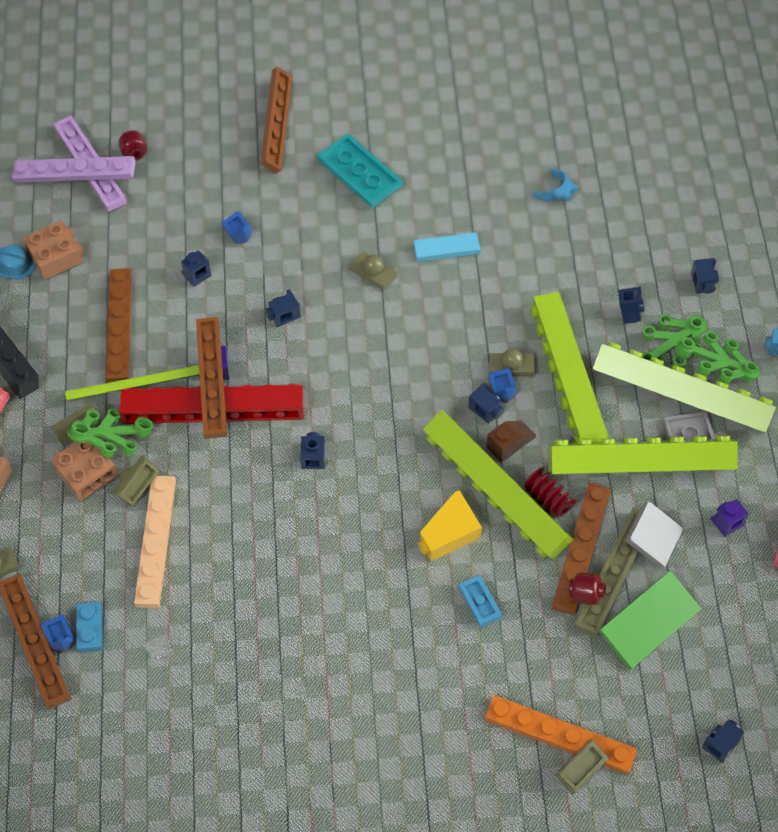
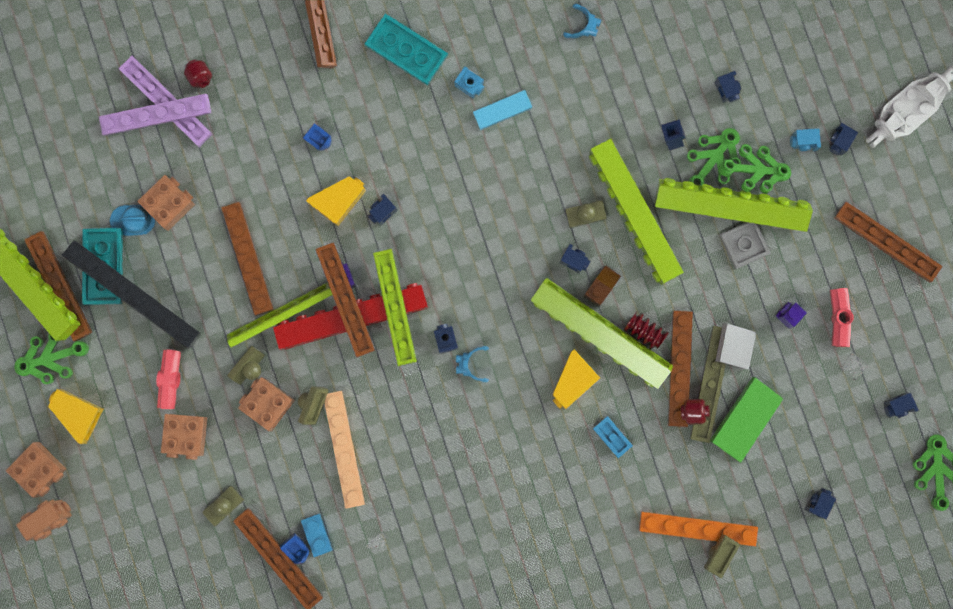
camera: 10 degrees left, 25 degrees up
(81, 432) = (275, 371): bright green plant -> none
(192, 263) = (295, 189): dark blue brick -> none
(238, 288) = (338, 199): none -> yellow slope
(264, 400) = (394, 307): none -> lime tile
(327, 479) = (463, 364): none -> dark azure helmet
(373, 270) = (446, 150): olive tile -> none
(417, 212) = (471, 90): none -> dark azure brick
(503, 384) = (584, 237): blue plate -> none
(642, 455) = (713, 280): lime brick -> none

